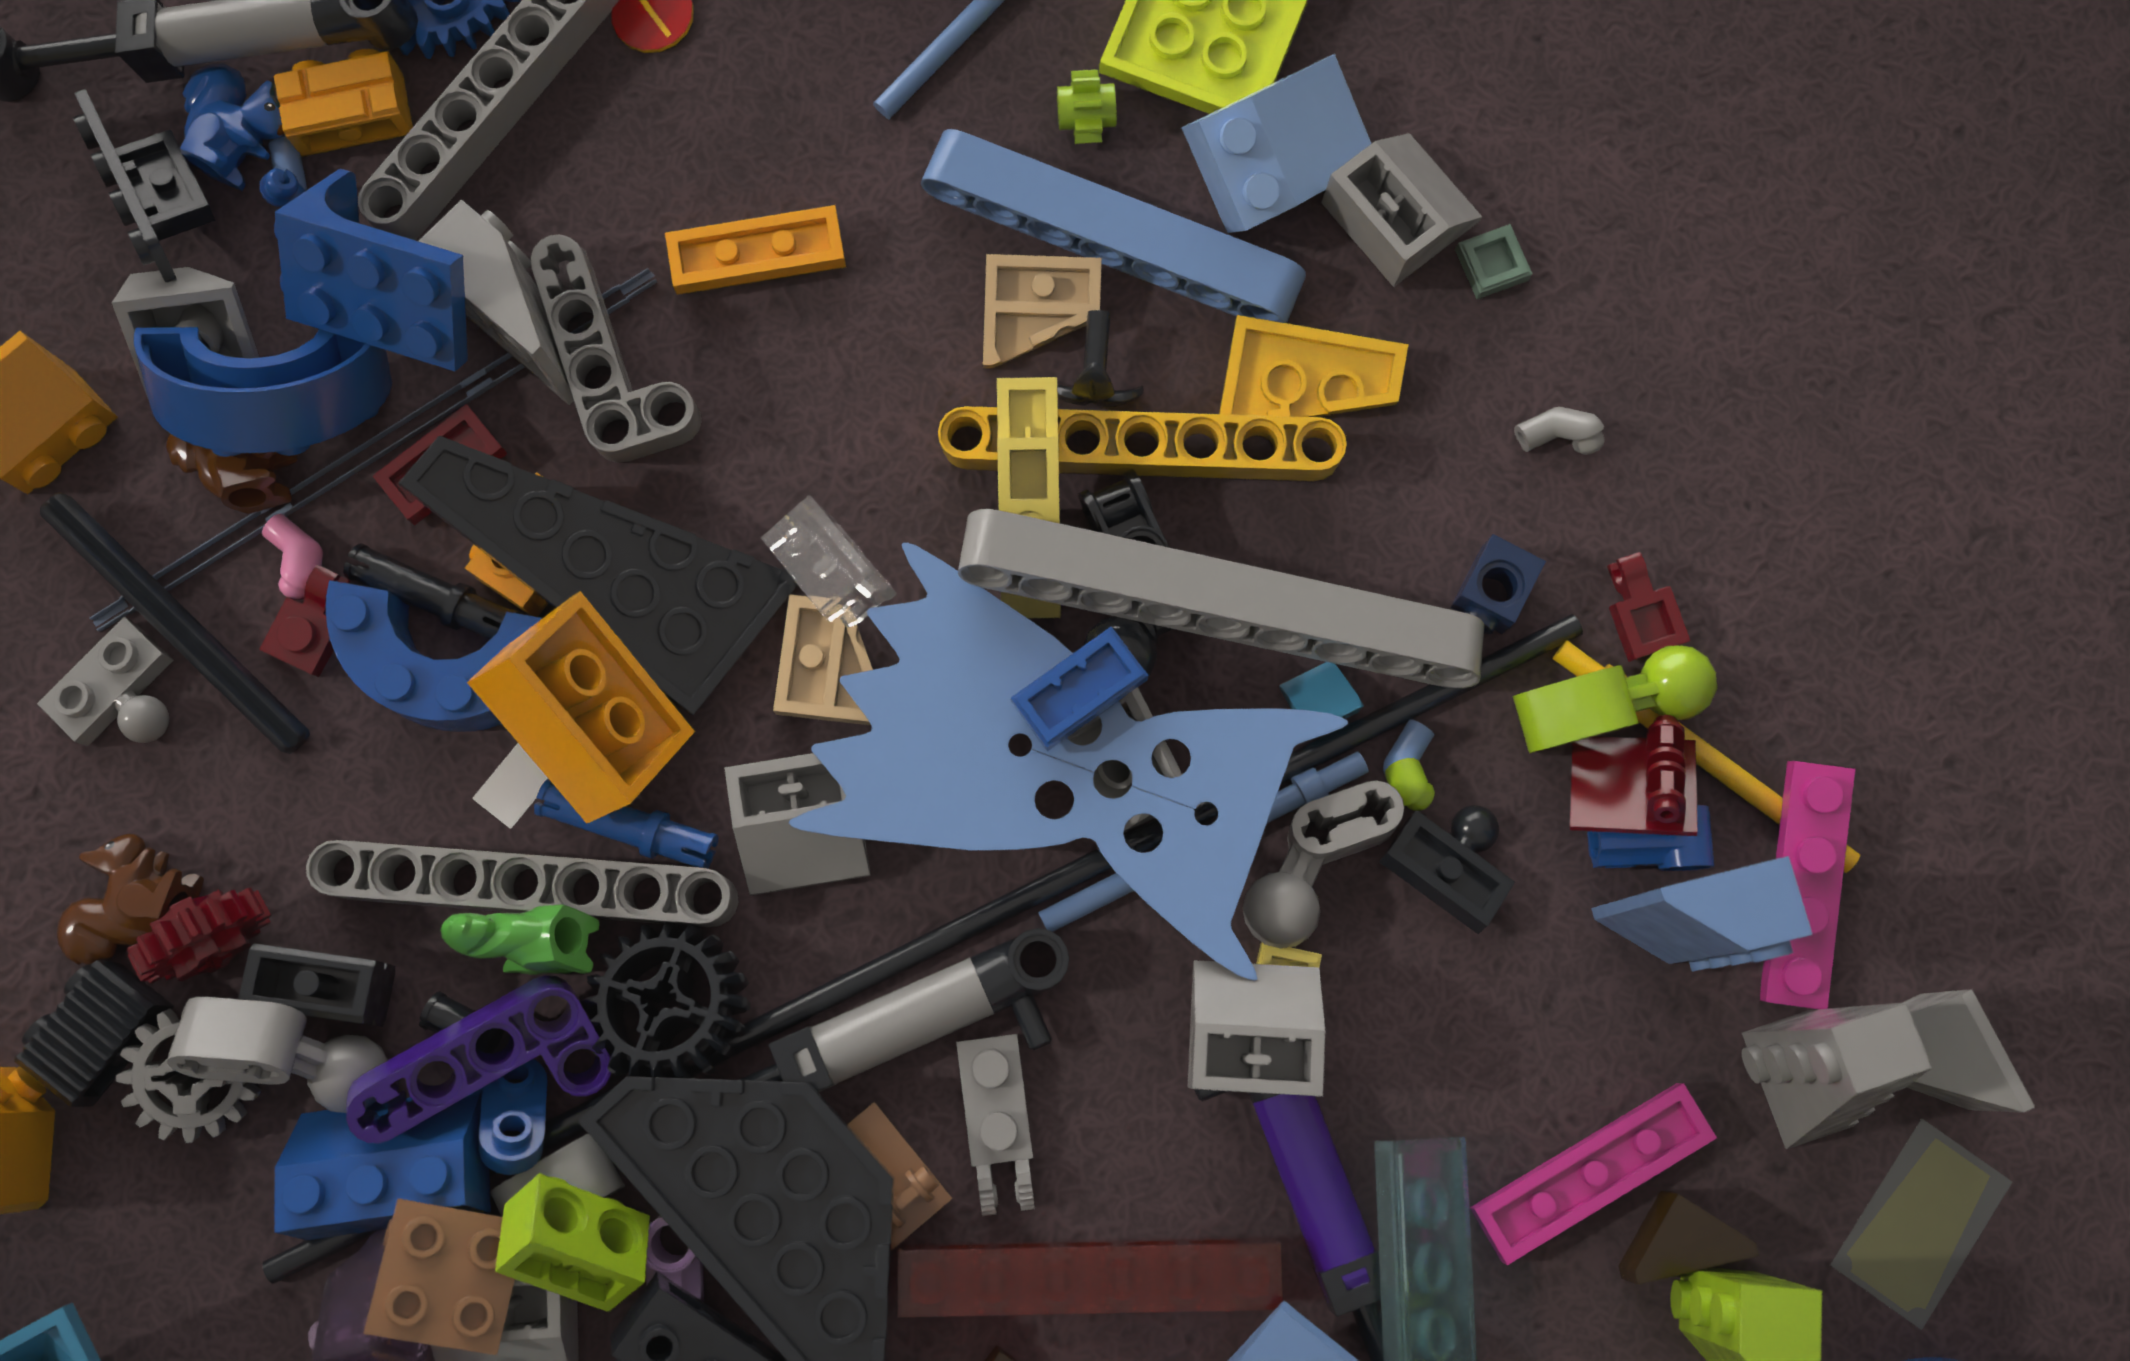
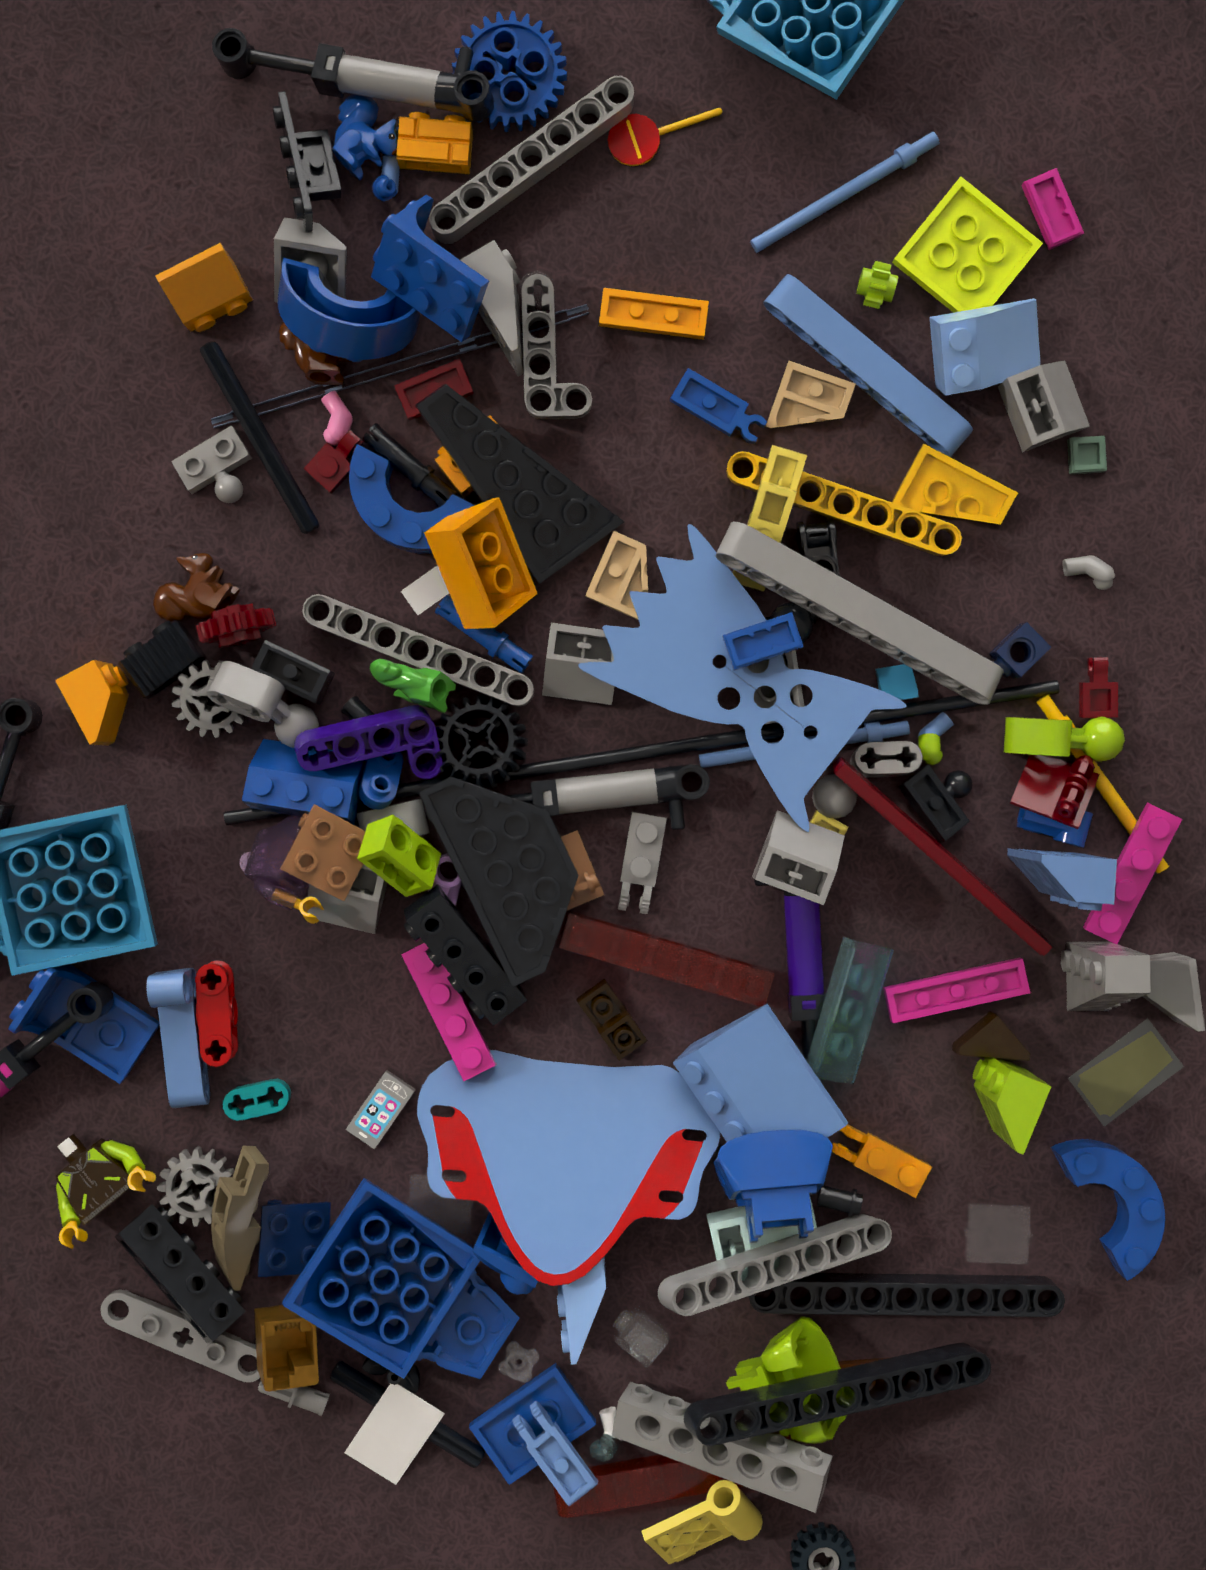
camera: 20 degrees right, 10 degrees up
(827, 563) = (641, 520): clear hinge -> none
(894, 357) = (715, 405): none -> blue plate
(1094, 383) = (827, 460): black plant -> none
(1491, 953) = (941, 856): none -> dark red tile

